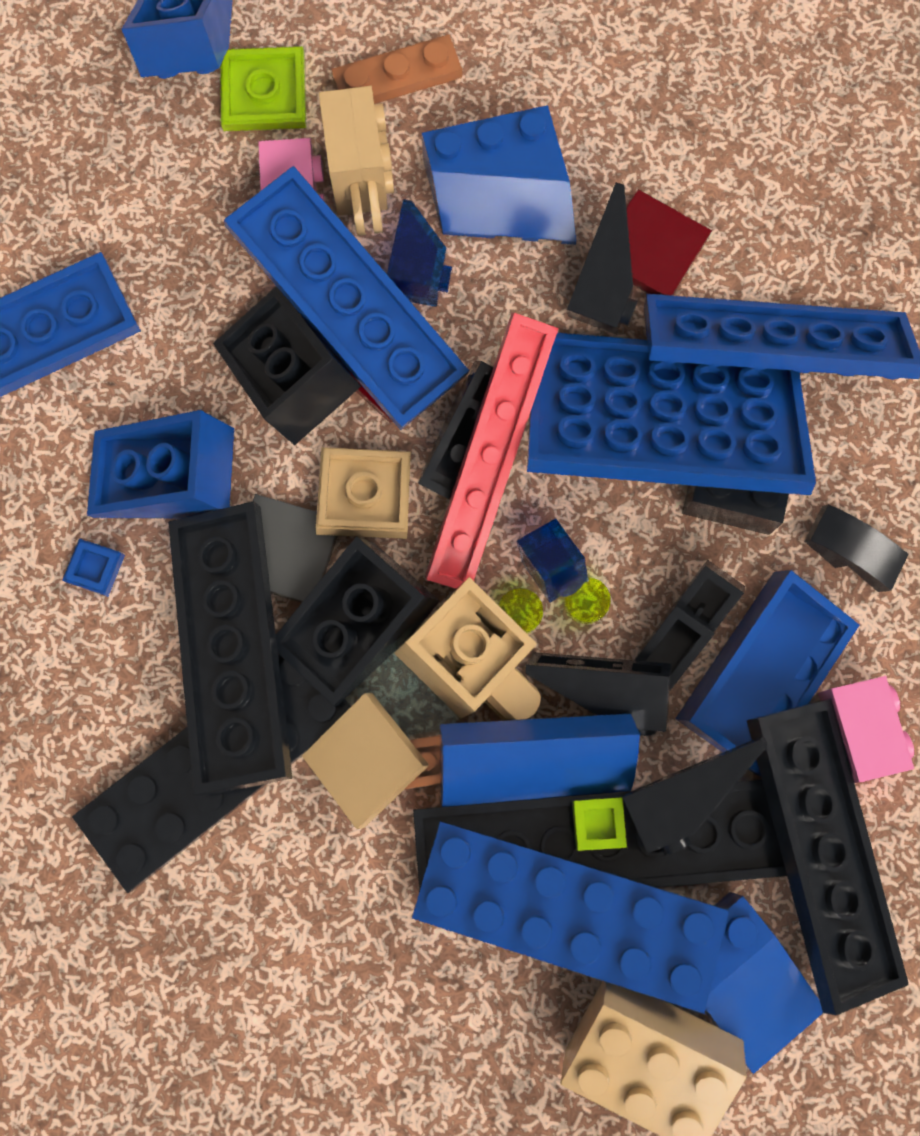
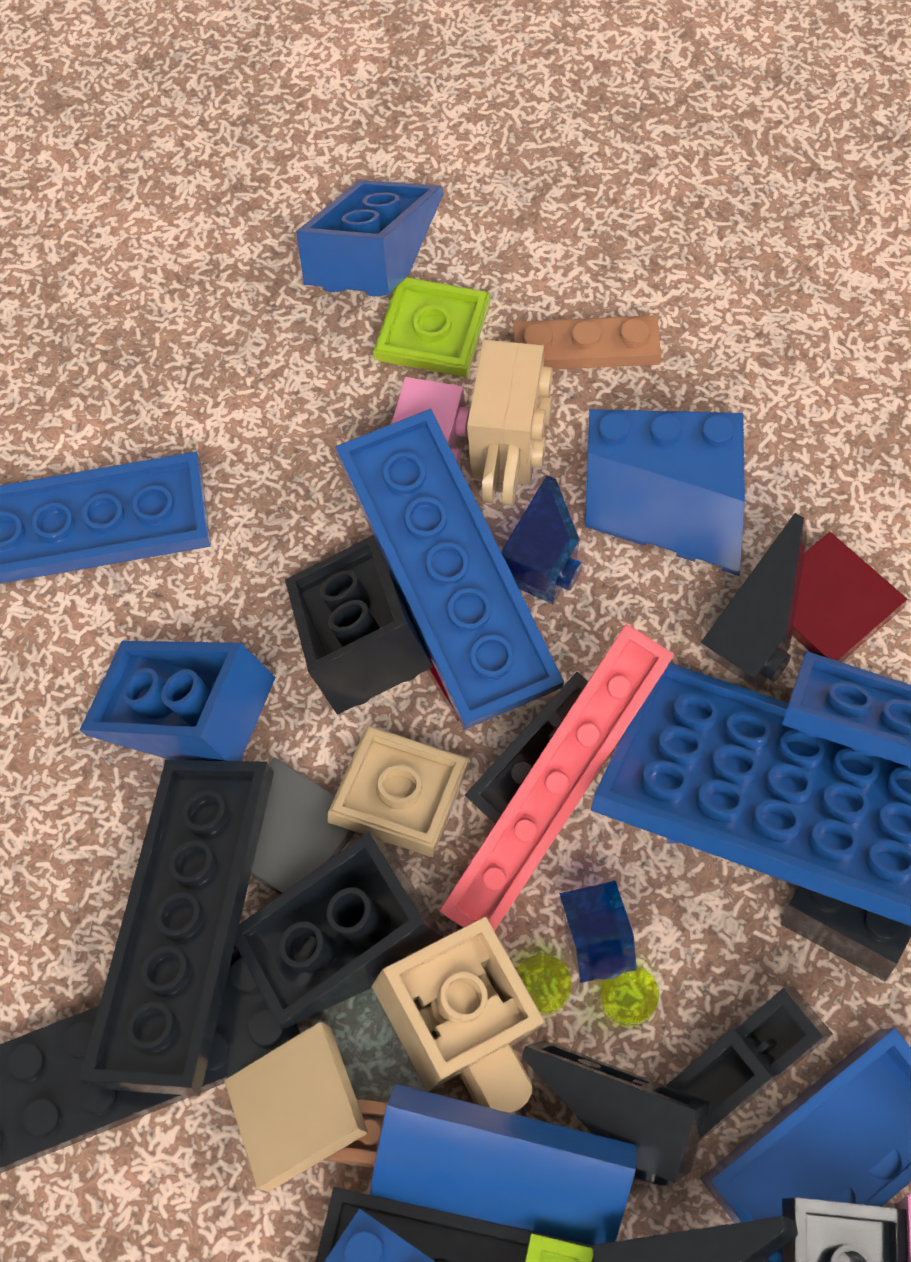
camera: 25 degrees right, 15 degrees down
(93, 567) = (66, 790): blue tile -> none

